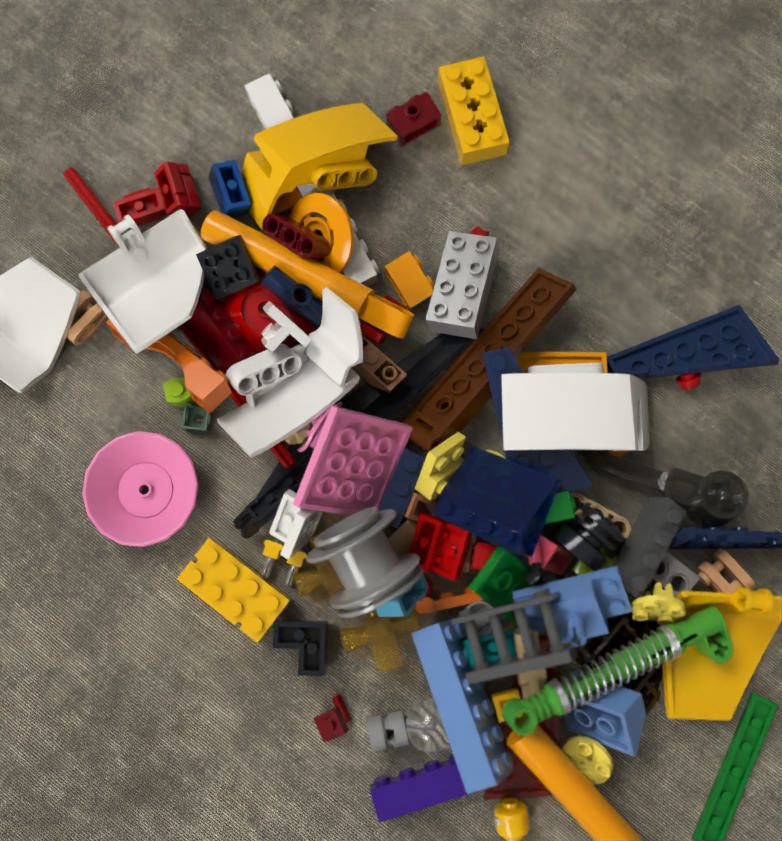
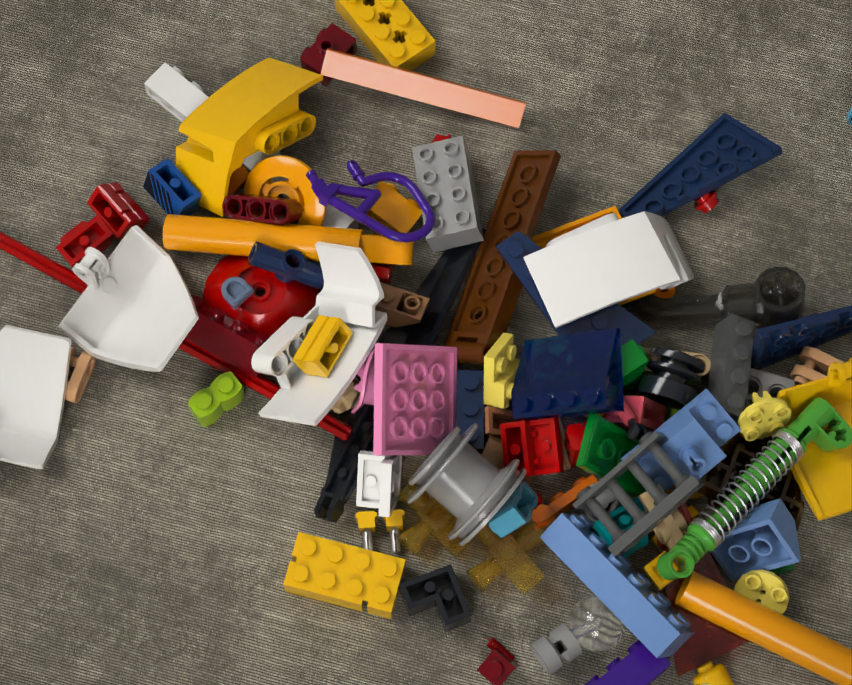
camera: 25 degrees left, 10 degrees down
(116, 482) = (204, 486): bright pink dish -> none
(189, 415) = (237, 419): sand green piece -> none
(201, 381) = (234, 379): orange arch -> none
(235, 264) = (223, 262): black plate -> none
(243, 302) = (236, 291): none -> sand blue tile
(275, 334) = (289, 296): white bracket -> none
(293, 383) = (322, 346): none -> yellow brick
(352, 248) = (328, 196): none -> dark purple piece
(481, 180) = (423, 88): none -> tile

